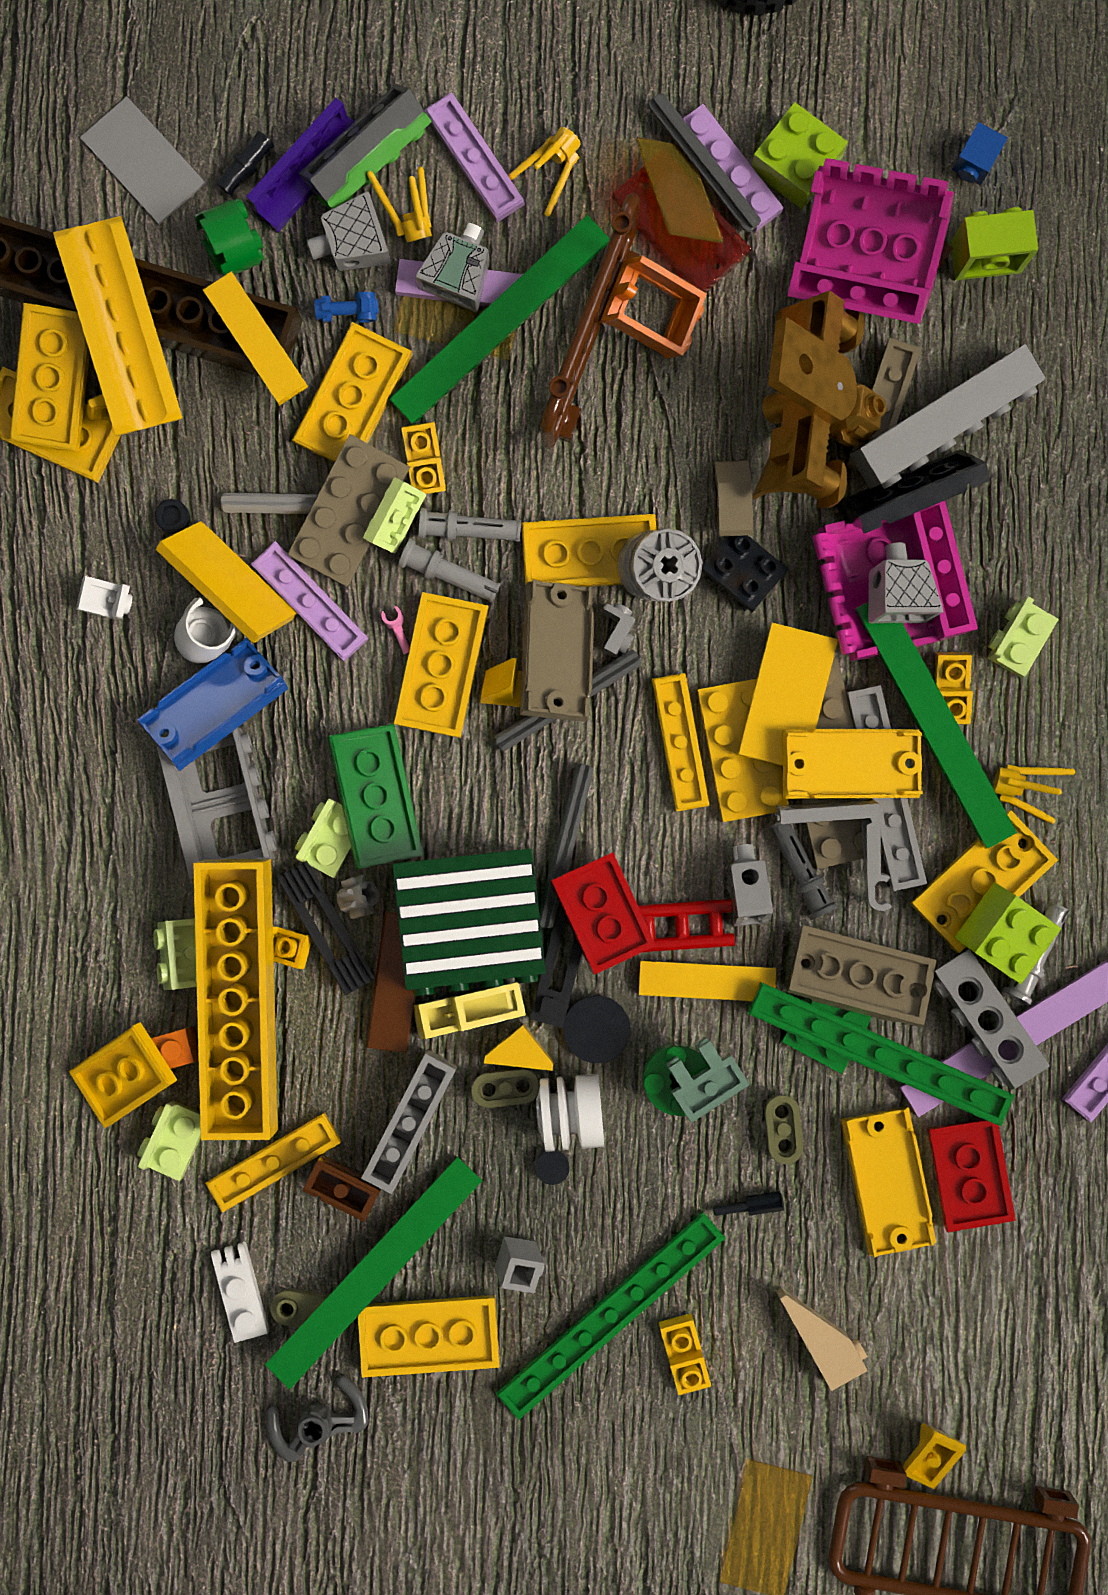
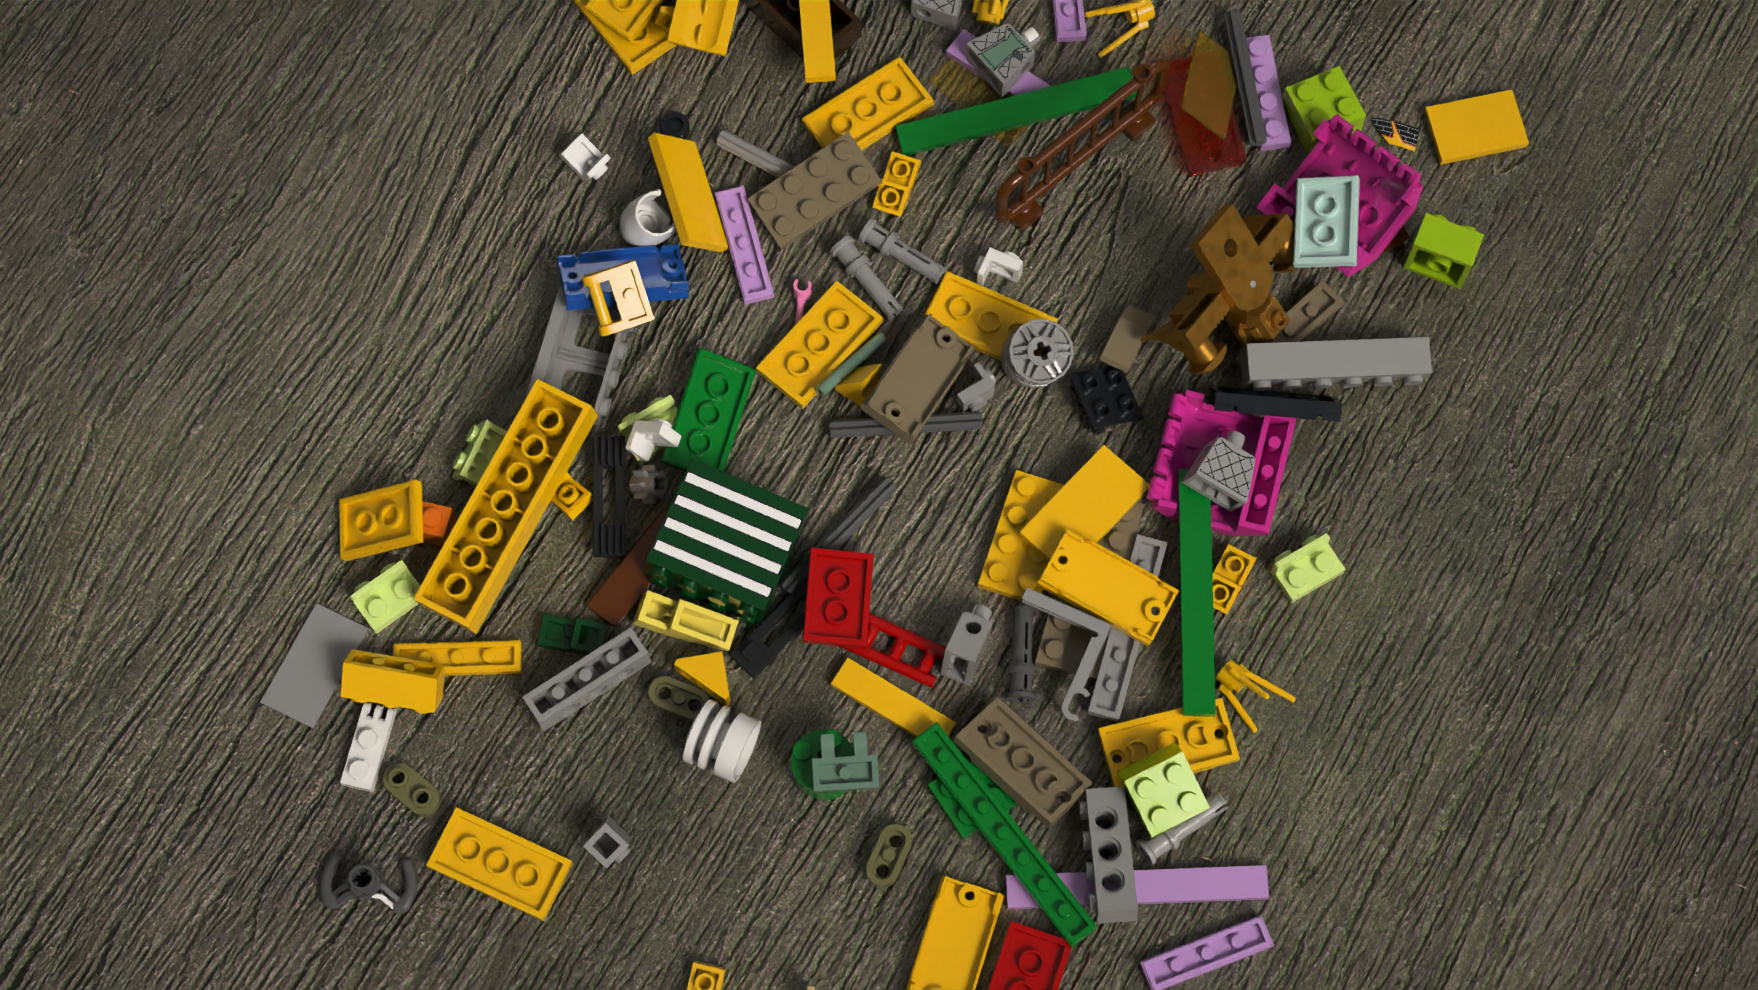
camera: 25 degrees right, 15 degrees down
(142, 1241) = (313, 665): none -> light grey window
(227, 1223) = (392, 681): none -> yellow brick
(231, 725) = (627, 293): none -> plate
(328, 856) = (648, 434): none -> white bracket
(341, 1188) = (502, 702): reddish brown brick -> none
(364, 307) = (915, 50): blue bar -> none
(368, 1081) = (570, 635): none -> dark green slope
(373, 1273) = (486, 785): green tile -> none
(394, 515) = (848, 210): yellowish green bracket -> none
(482, 670) = (850, 364): none -> sand green piece
(552, 1167) = (680, 784): black tile -> none
(574, 486) = (1000, 263): none -> white bracket
(596, 1029) = (780, 693): black tile -> none
(610, 1315) = (658, 932): green tile -> none
(680, 742) = (978, 505): yellow tile -> none
(684, 316) = (1168, 181): orange window -> none
(754, 1204) = (829, 906): black axle -> none
(871, 278) = (1326, 221): none -> light aqua tile
(879, 141) = (1397, 133): none -> sticker
(952, 94) = (1476, 127): none -> yellow tile
(979, 154) = (1472, 180): blue brick -> none

